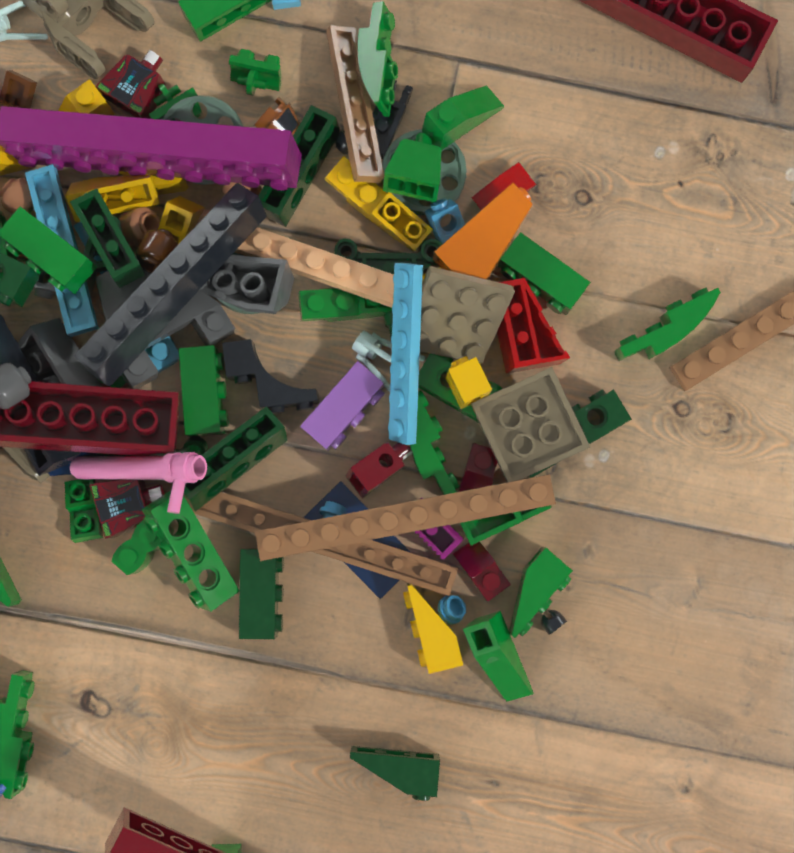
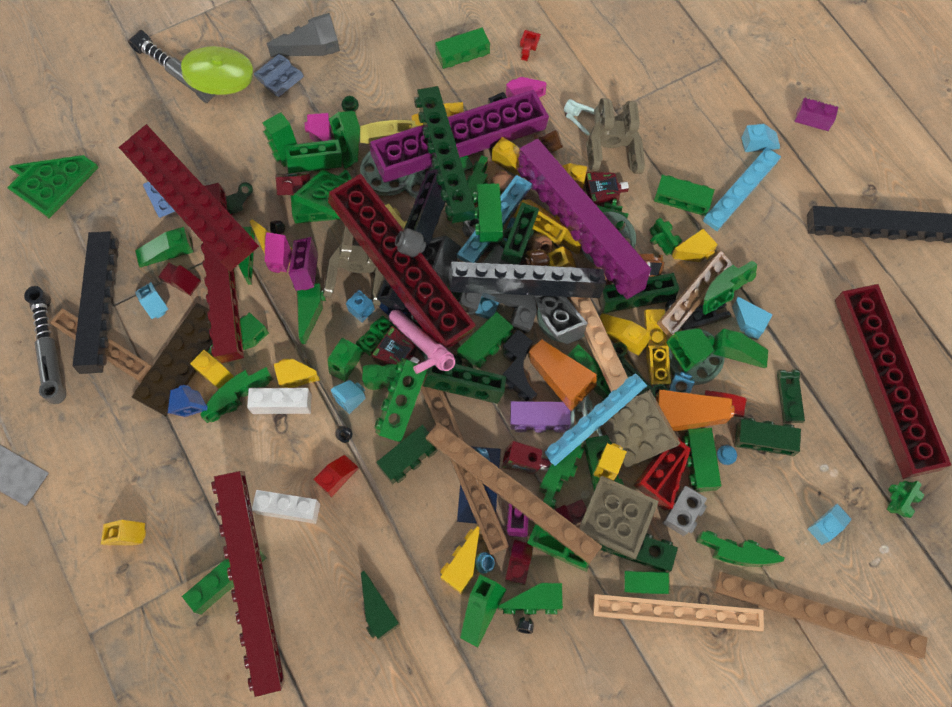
camera: 50 degrees right, 15 degrees down
(30, 499) = (360, 306): none -> dark azure brick
(46, 648) = (294, 374): none -> yellow slope
(67, 689) = (279, 400): none -> white brick
(81, 572) = (345, 357): none -> green torso
(131, 604) = (348, 395): none -> medium azure slope
(172, 652) = (347, 431): none -> black hinge
(202, 781) = (286, 506): none -> white brick
(213, 693) = (335, 475): none -> red slope
(302, 49) = (696, 248): none -> yellow slope
(320, 339) = (563, 374): none -> orange slope
(331, 225) = (625, 331): none -> yellow slope
(436, 69) = (750, 318): none -> medium azure slope
(557, 112) = (790, 396): none -> dark green plate
(560, 242) = (726, 455): none -> dark azure plate
(575, 345) = (682, 509): none -> light grey brick
(579, 180) = (768, 437): none -> dark green brick
(618, 454) = (647, 582): none -> green slope
(675, 449) = (678, 613): none -> light nougat plate
(723, 205) = (830, 524): none -> medium azure slope
(761, 101) = (903, 496): none -> green hips

